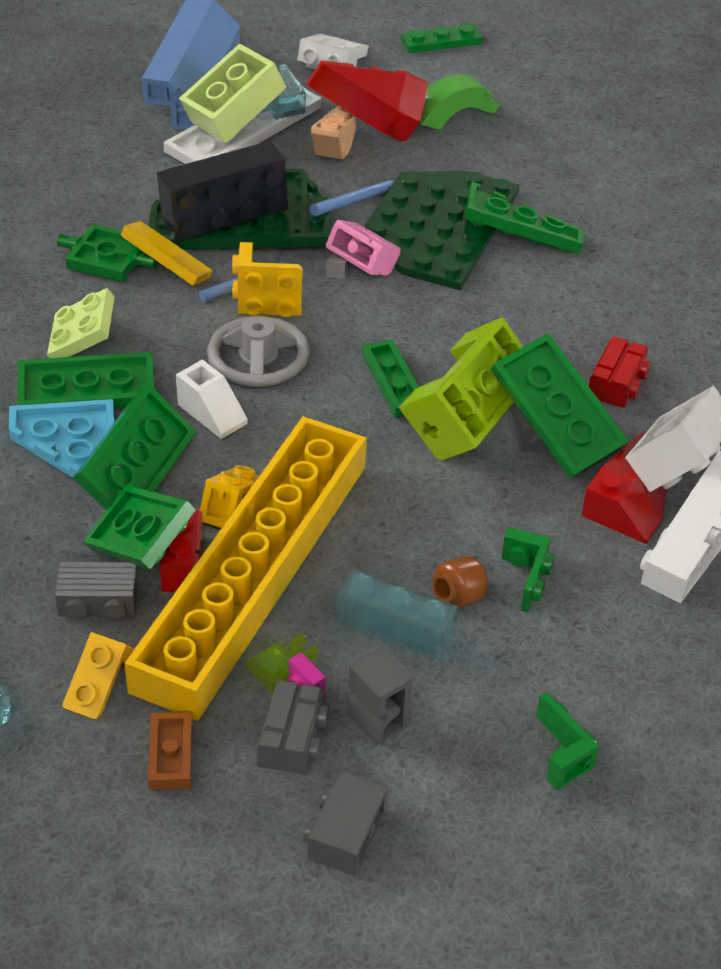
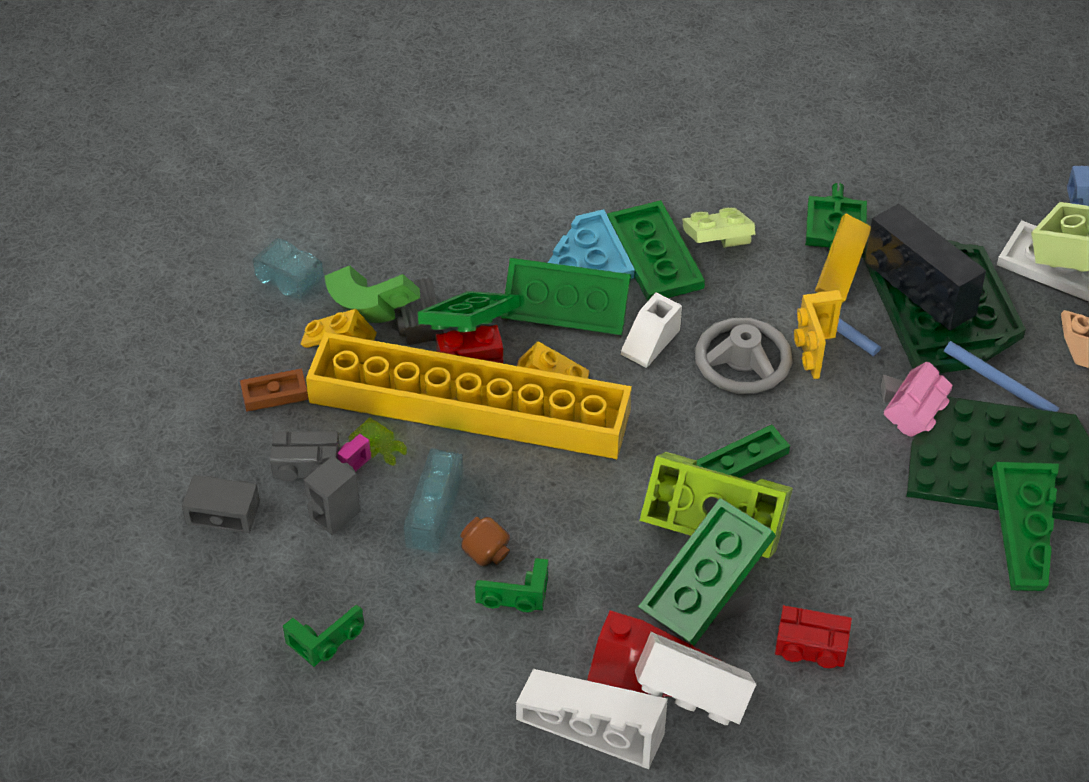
camera: 80 degrees right, 5 degrees up
(66, 637) = (372, 302): none -> bright green arch

